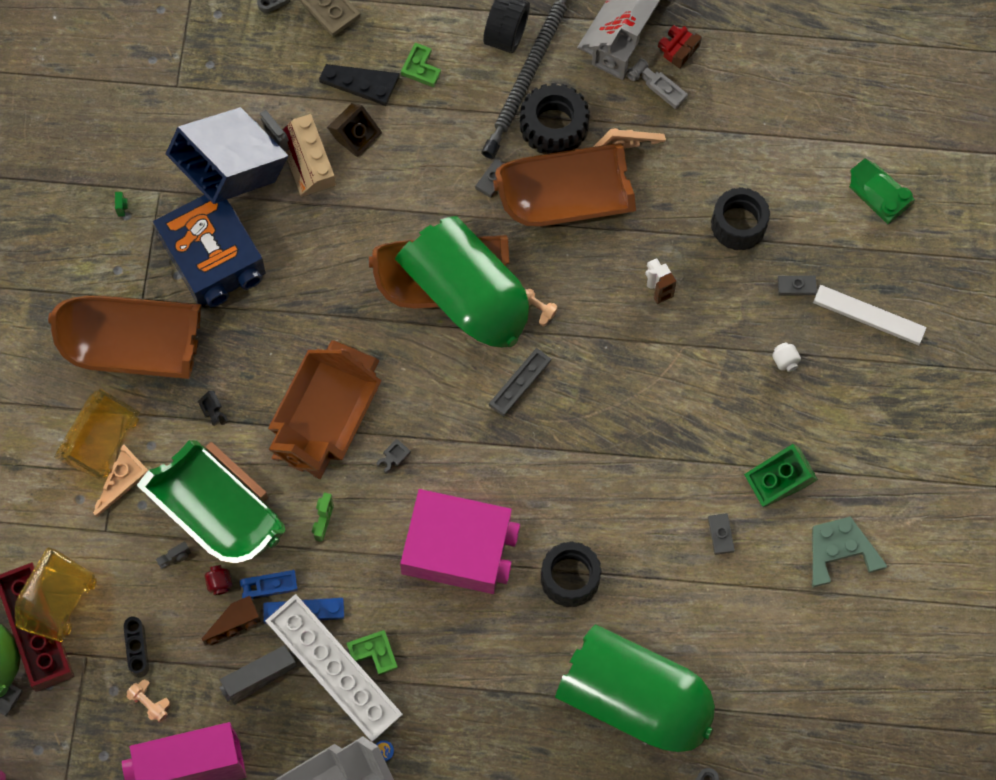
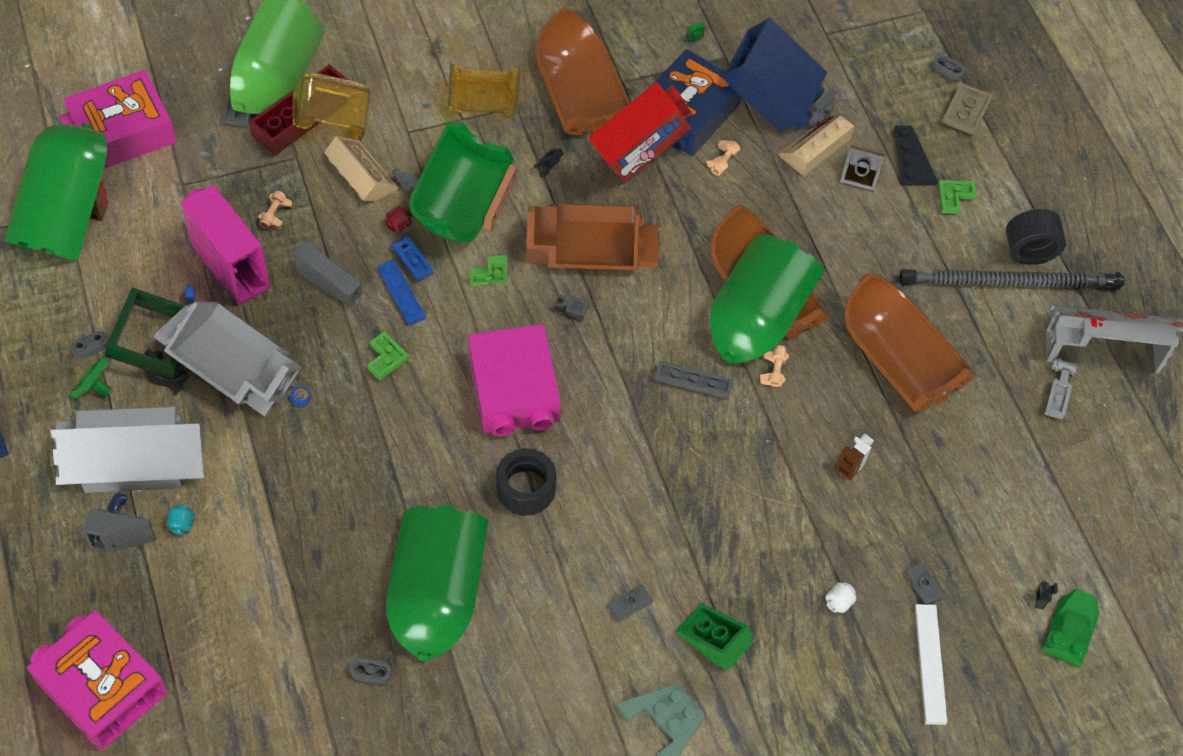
camera: 65 degrees right, 10 degrees down
(125, 474) = (472, 121): light nougat wing -> none
(137, 595) = (360, 169): none -> tan slope
(140, 655) = (316, 184): black beam -> none
(235, 618) = (371, 243): reddish brown slope -> none
(247, 305) = (642, 130): none -> red brick
(290, 252) = (720, 163): none -> light nougat piece
(334, 668) = (356, 329): white plate -> none
(554, 98) = (972, 294): black tyre -> none
(629, 138) = (987, 383): light nougat wing -> none
(681, 46) = (1111, 393): hips -> none
(744, 199) = (969, 486): black tyre -> none
(845, 196) = (1044, 594): none -> black plate

